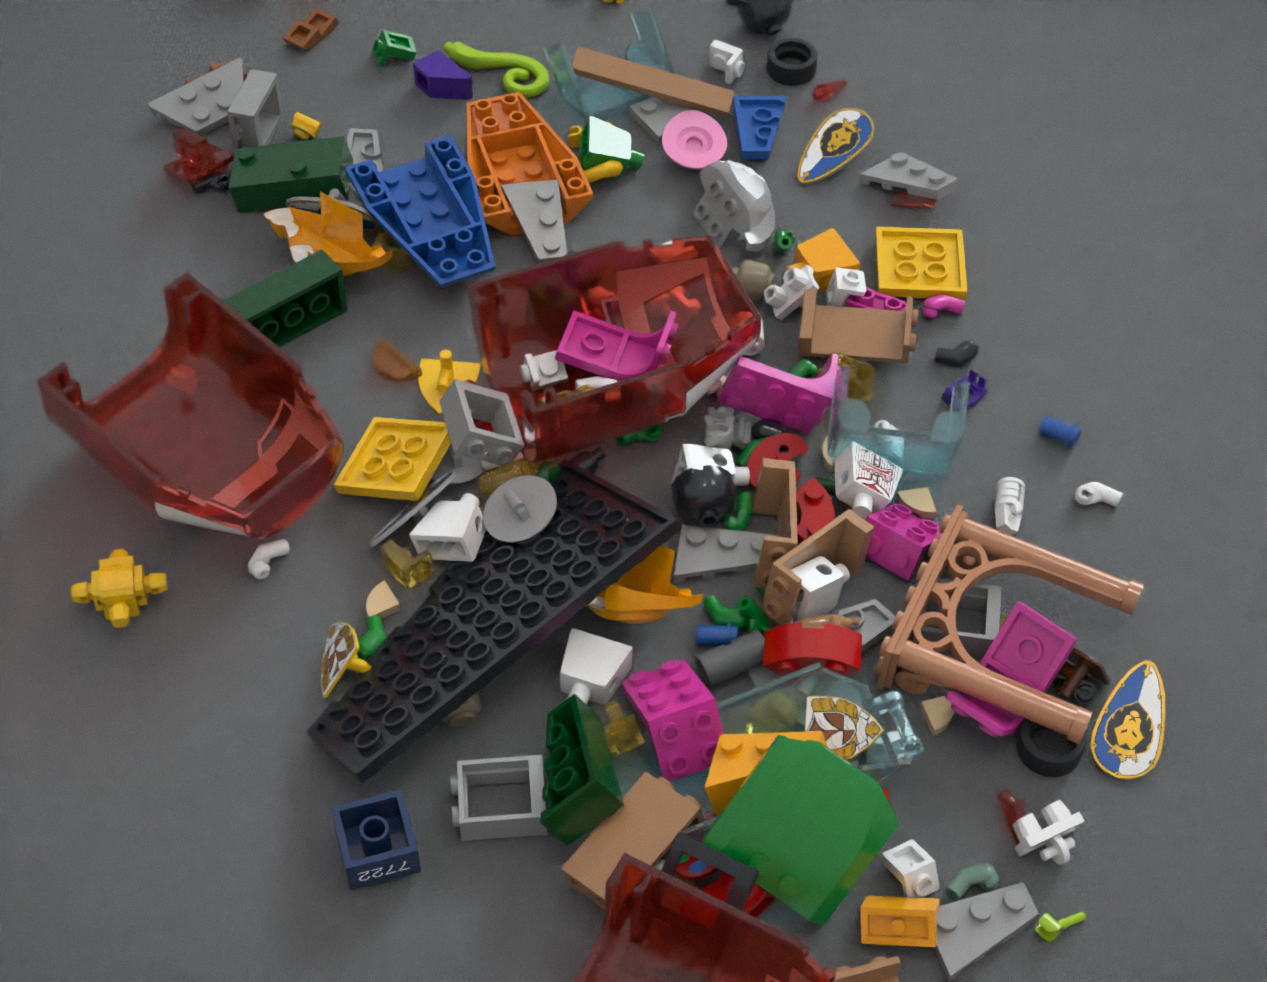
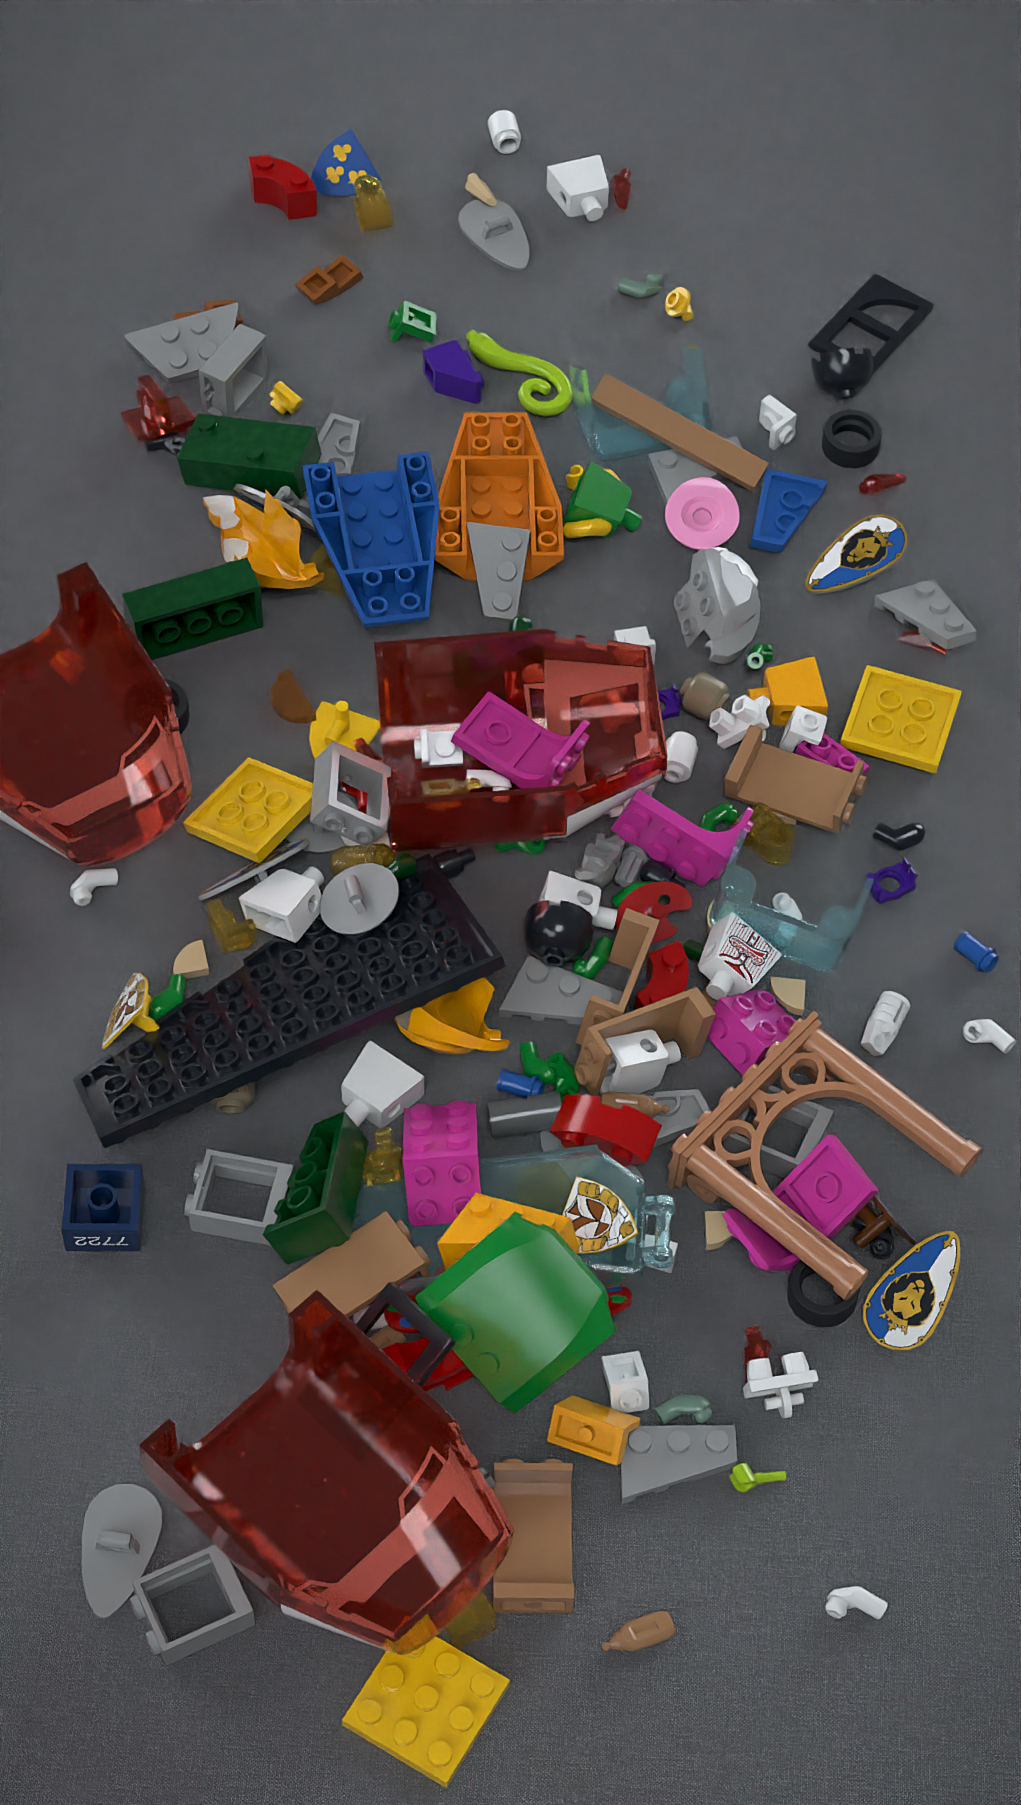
camera: 15 degrees right, 5 degrees up
(942, 302) = (905, 771): dark pink arm -> none

